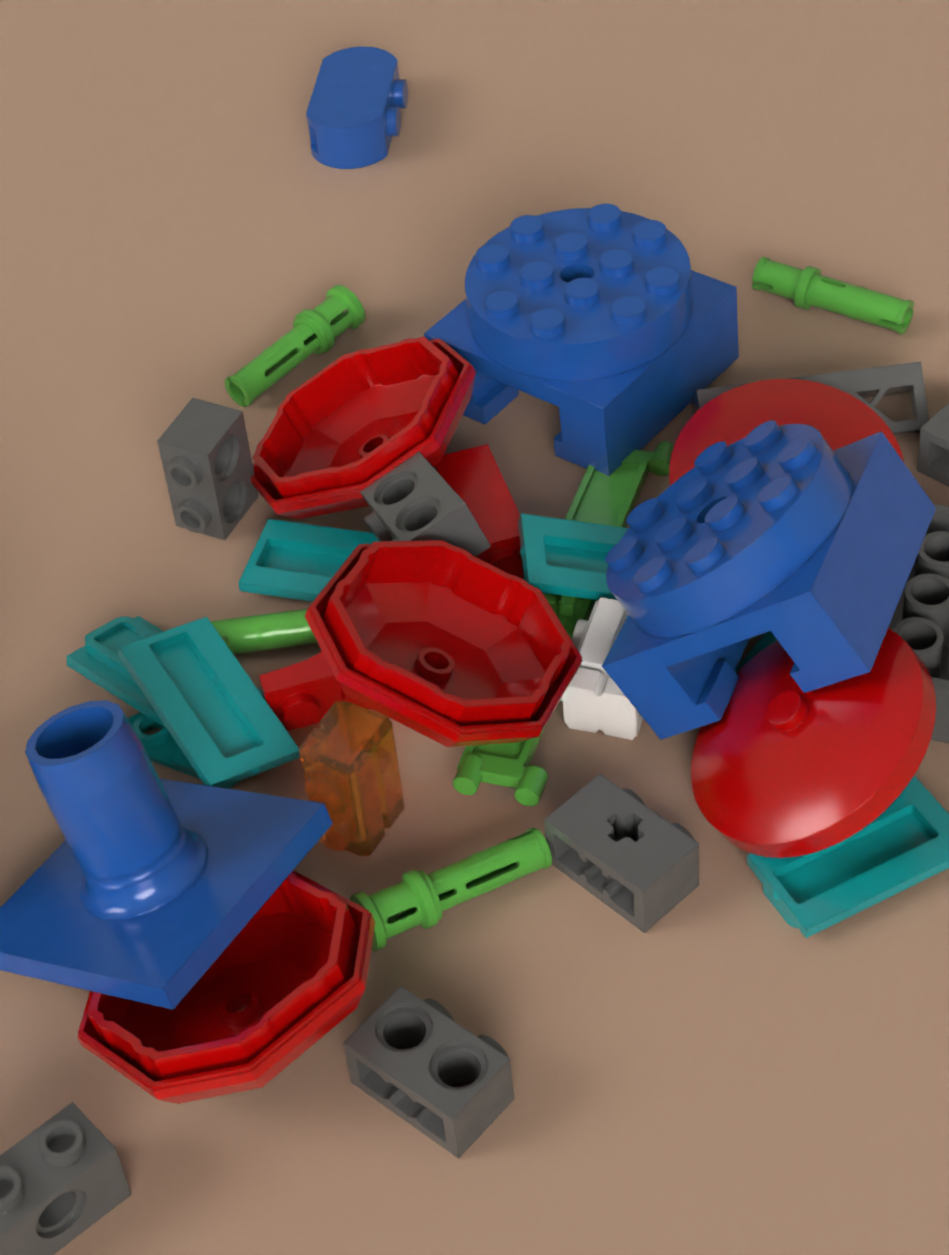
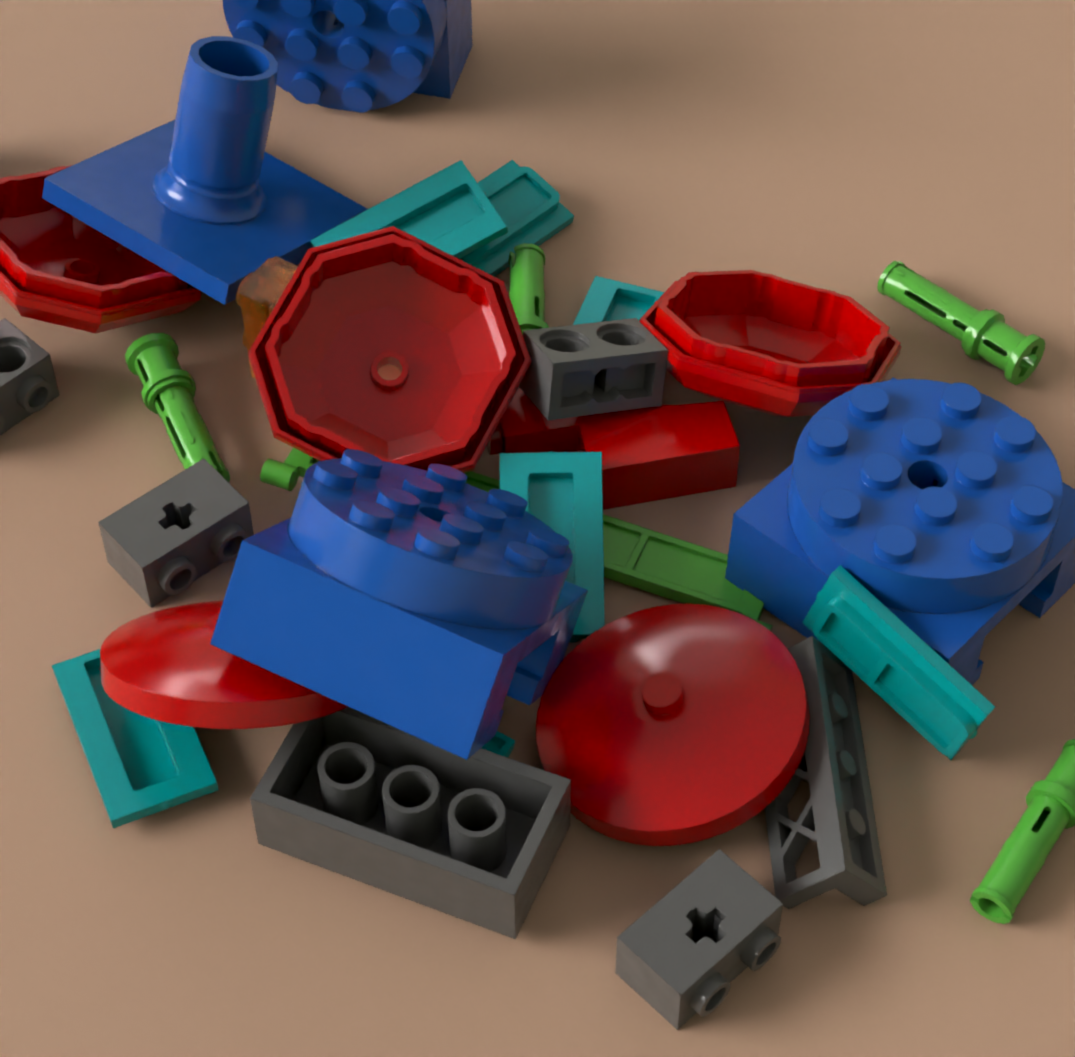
camera: 90 degrees right, 5 degrees up
(208, 468) = (726, 221): dark grey brick -> none
(722, 338) = (897, 664): none -> teal piece

